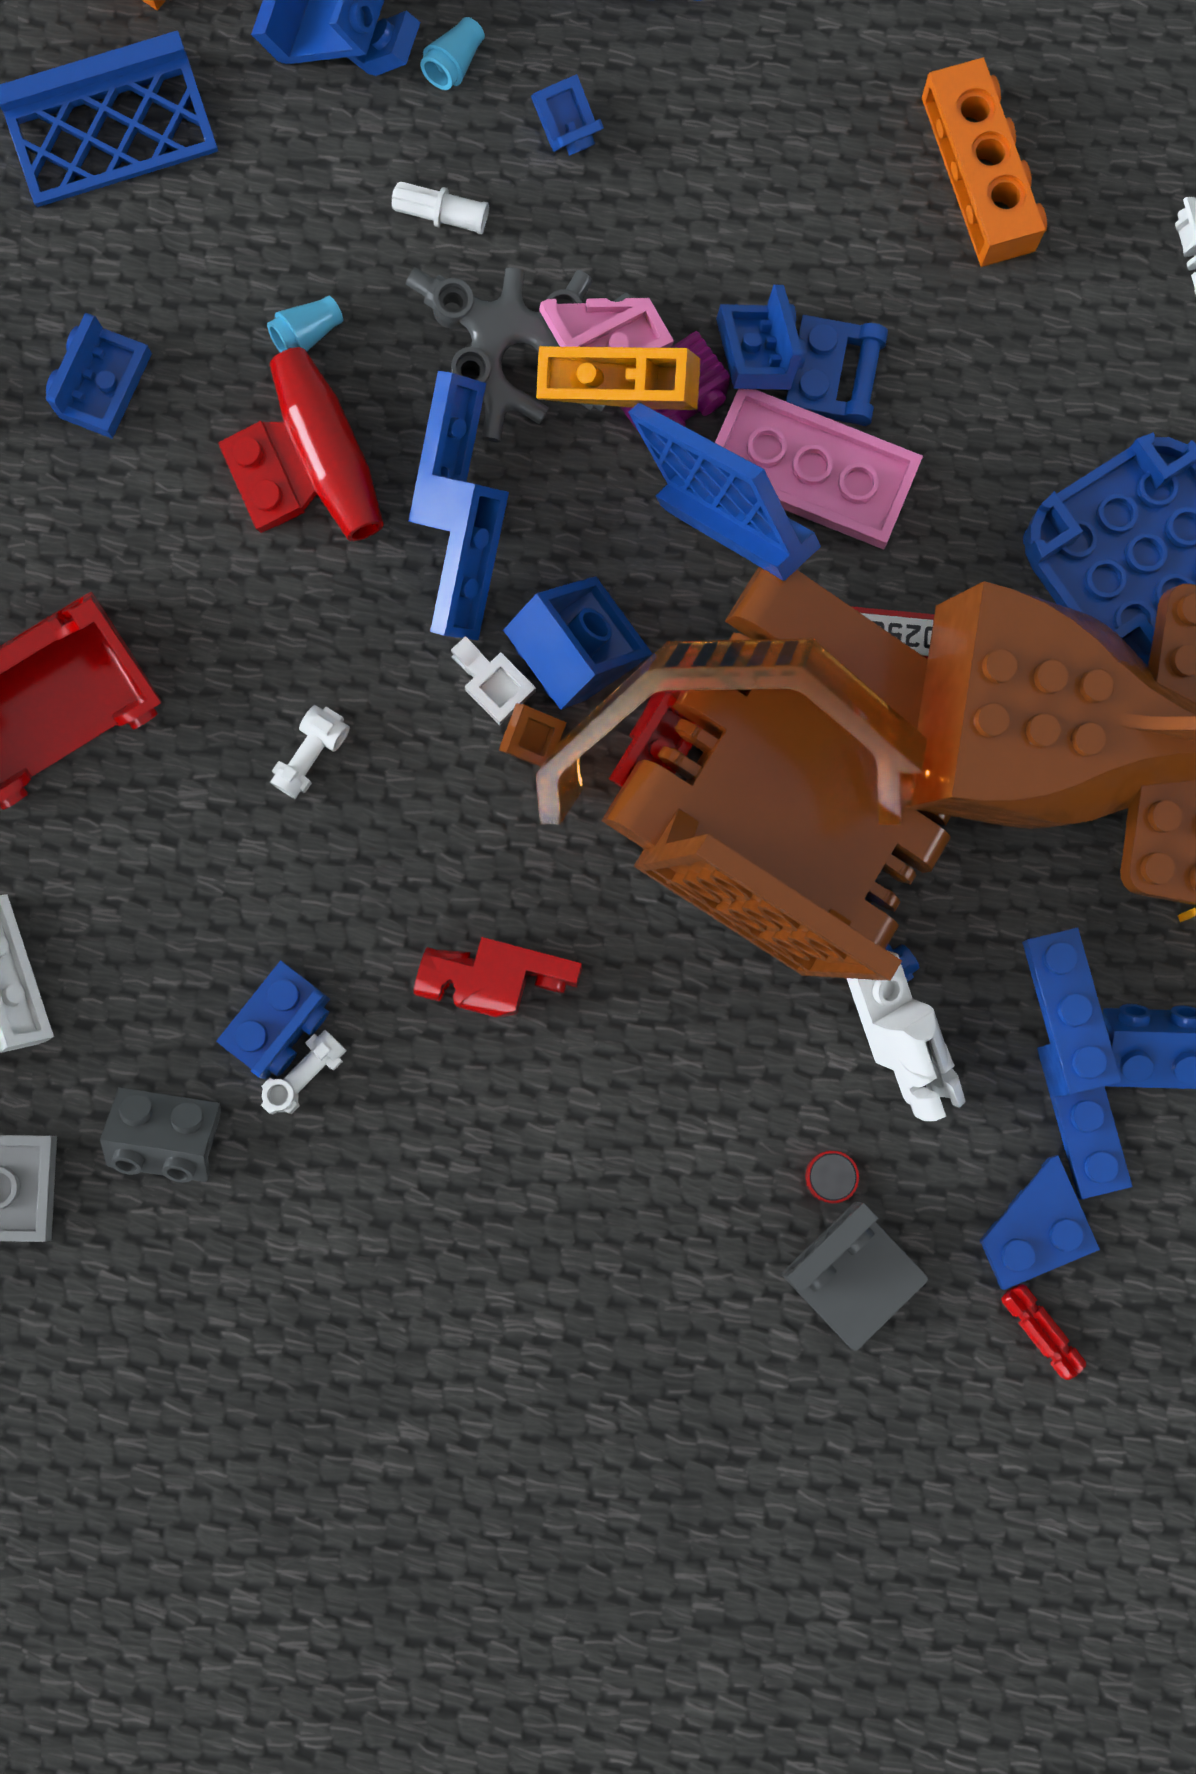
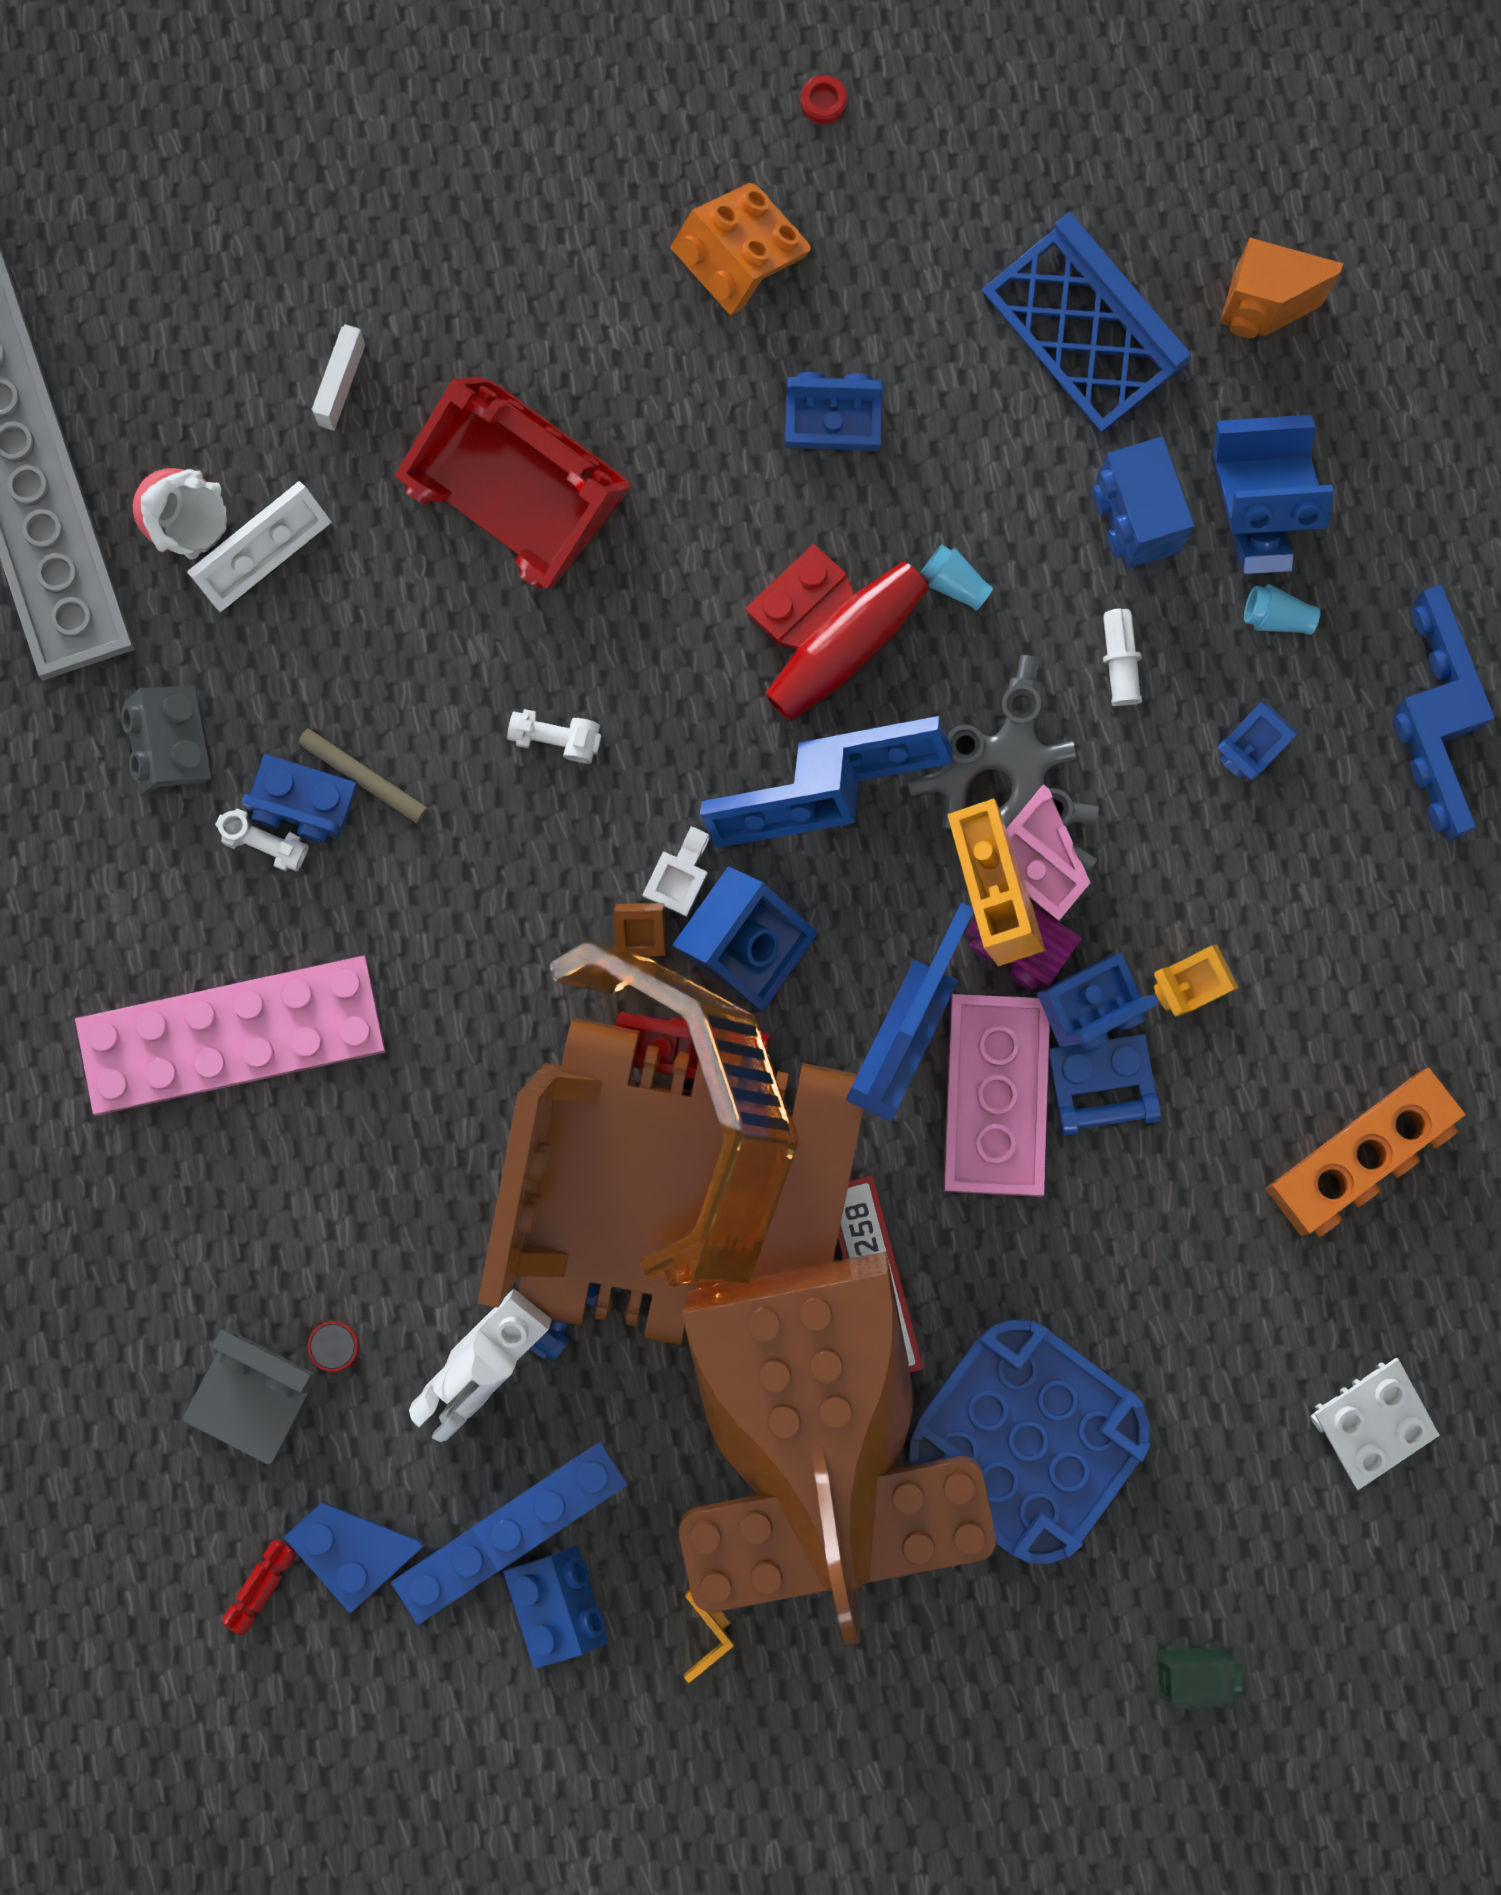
camera: 65 degrees right, 0 degrees up
(274, 953) = (362, 775): none -> dark tan bar
(303, 123) = (1142, 503): none -> blue brick
(486, 1175) = (230, 1035): none -> bright pink plate
(494, 979) = (406, 977): red plate -> none
(770, 250) = (1194, 981): none -> light orange bracket

